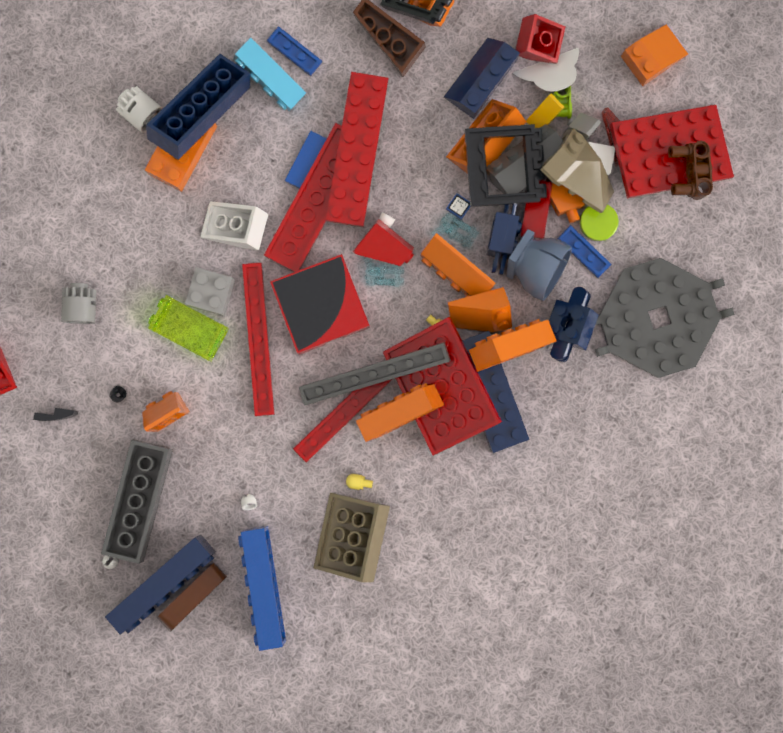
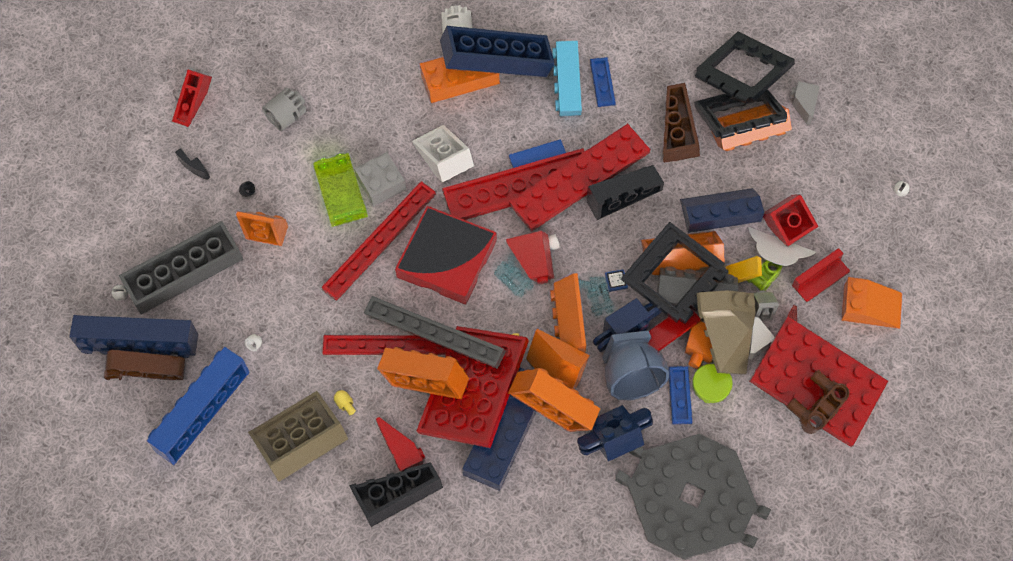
camera: 45 degrees right, 20 degrees down
(400, 129) = (623, 191): none -> black wedge
(435, 477) = (402, 449): none -> red slope
(460, 513) = (395, 492): none -> black wedge
(600, 65) = (821, 276): none -> red panel

